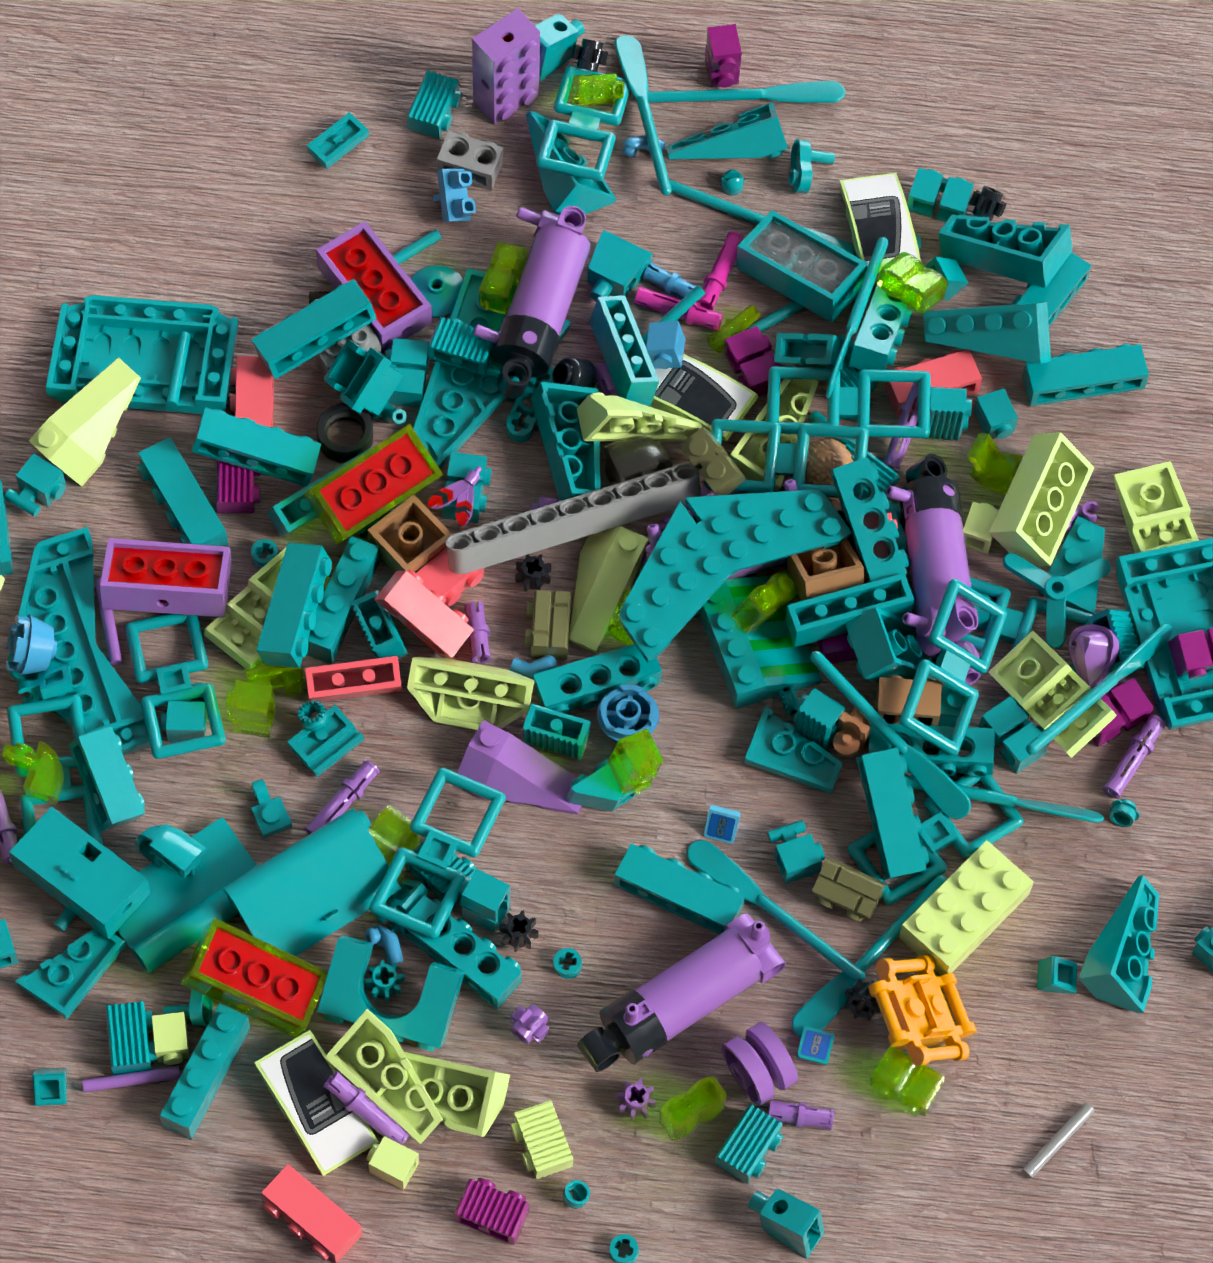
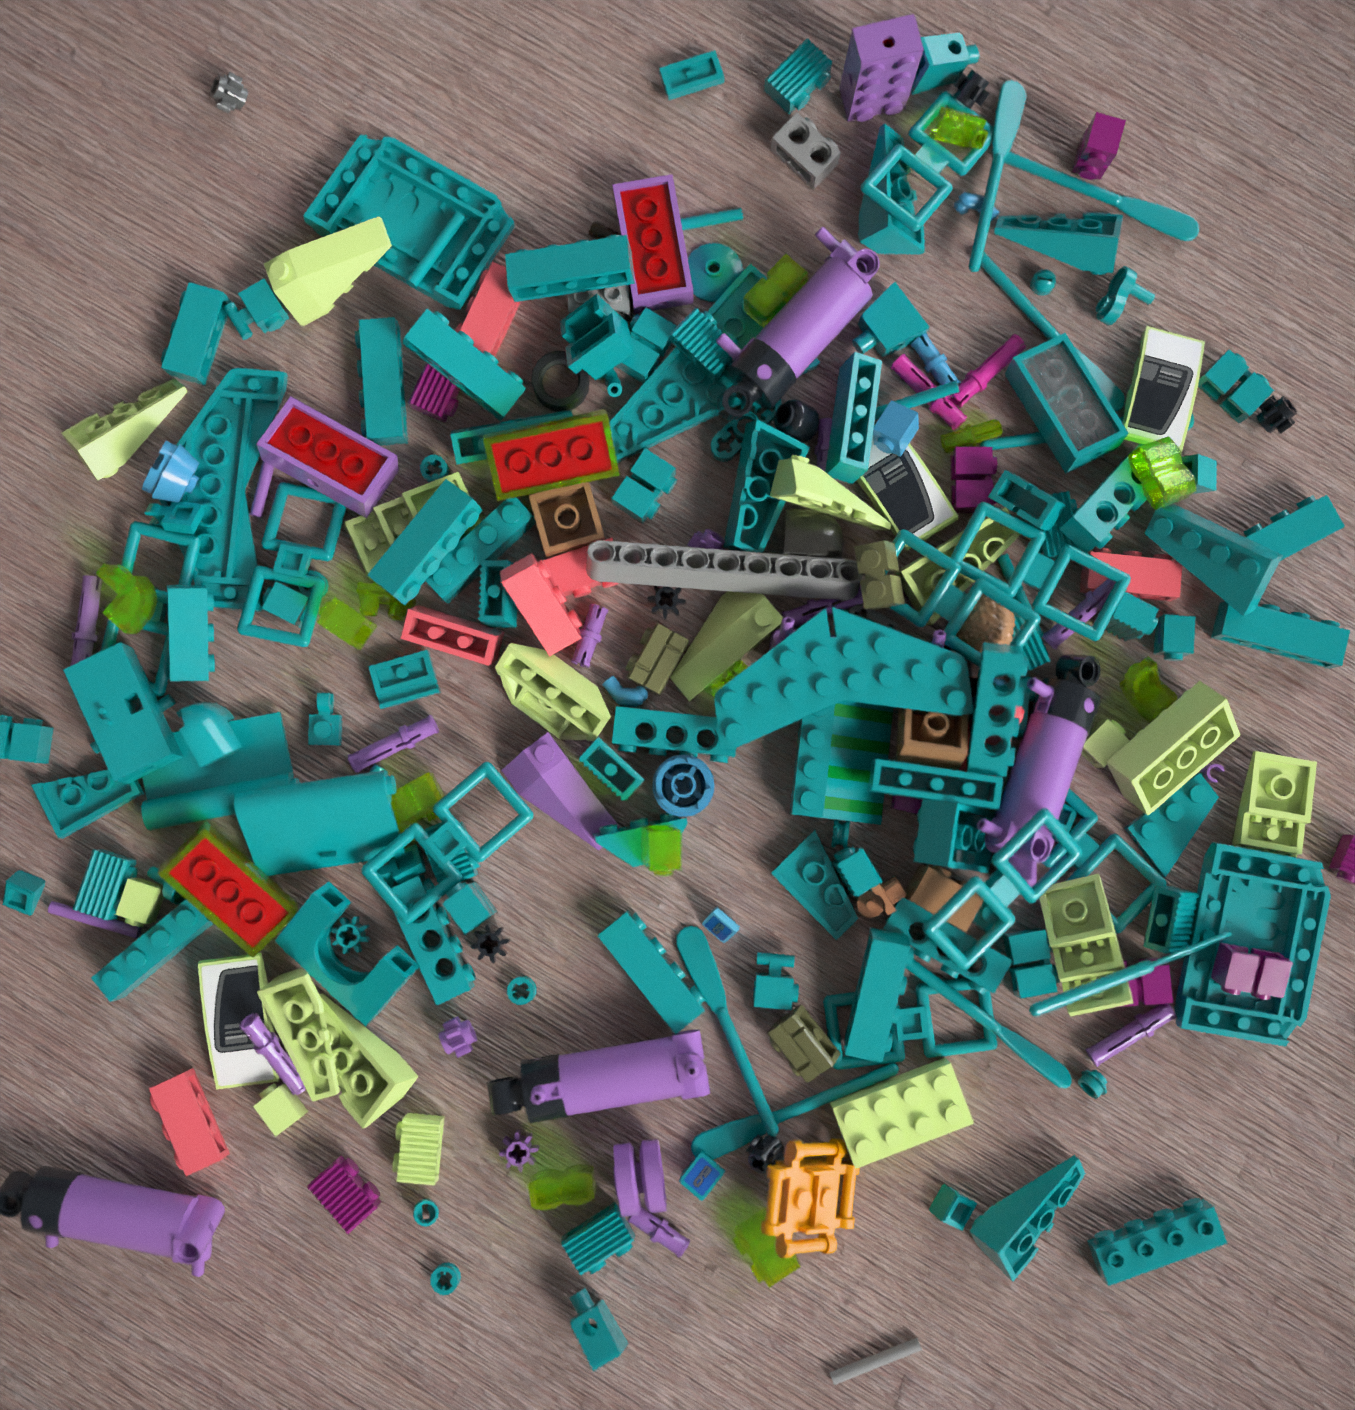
camera: 30 degrees right, 20 degrees up
(305, 712) = (398, 645): teal bush -> none
(386, 939) = (373, 900): dark azure arm -> none
(454, 195) = (772, 182): dark azure hips -> none
(460, 491) = (635, 496): piece -> none
(765, 602) = (860, 737): clear neon green brick -> none
(859, 306) = (1099, 475): teal piece -> none
(931, 778) = (930, 978): teal piece -> none
(1006, 248) = (1272, 474): teal wedge -> none
(1056, 601) = (1154, 841): teal piece -> none
(1093, 652) = (1143, 926): medium lavender piece -> none

